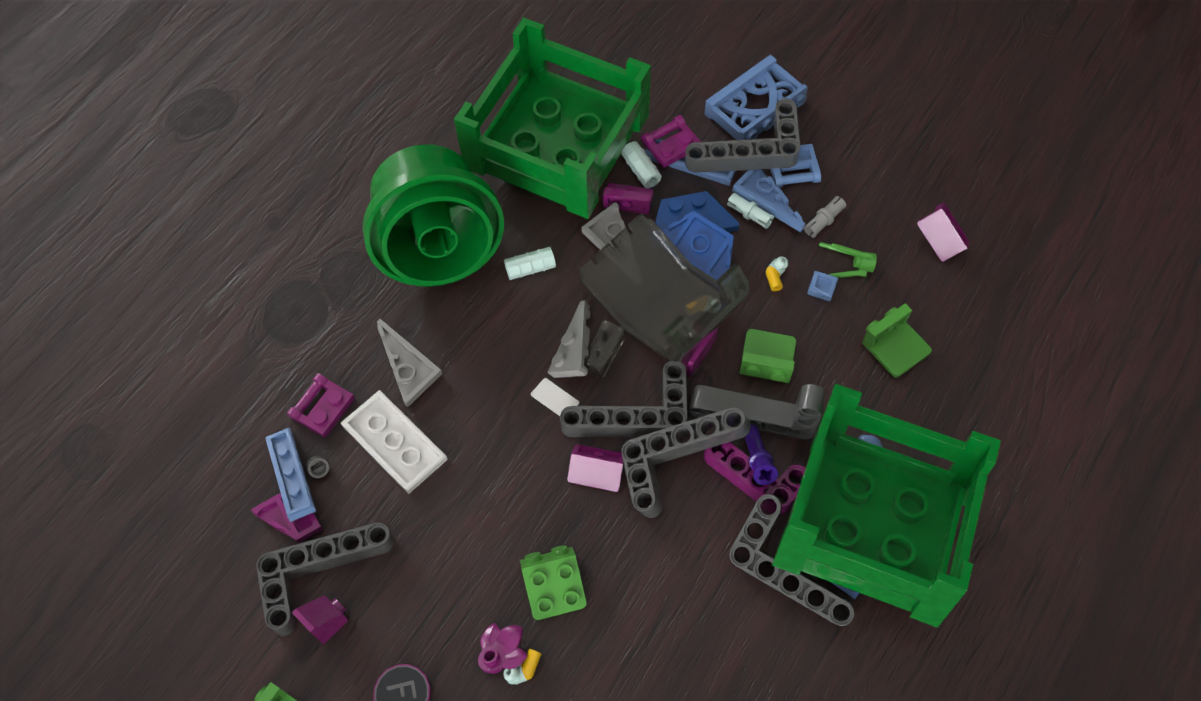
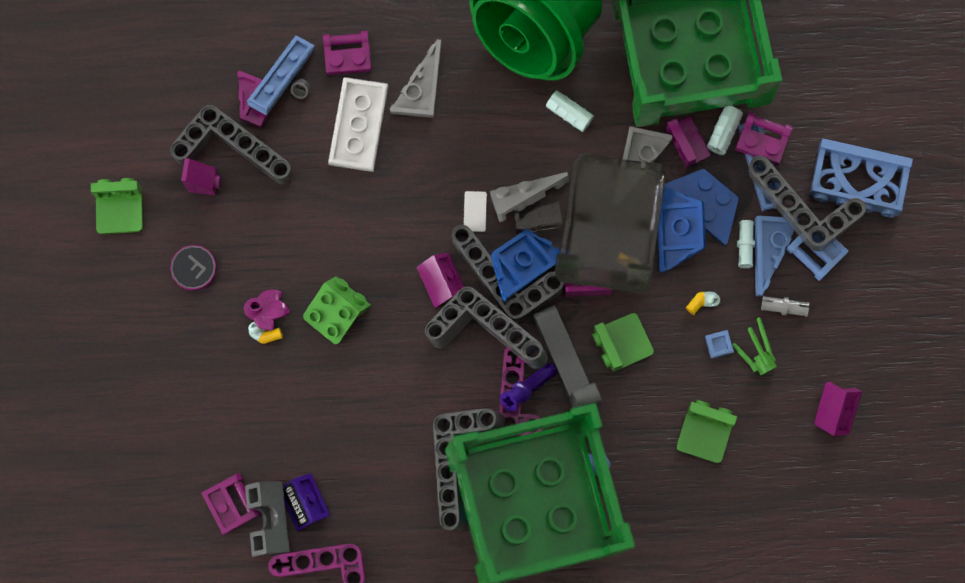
camera: 55 degrees right, 15 degrees up
(636, 384) = (522, 262): none -> blue wing

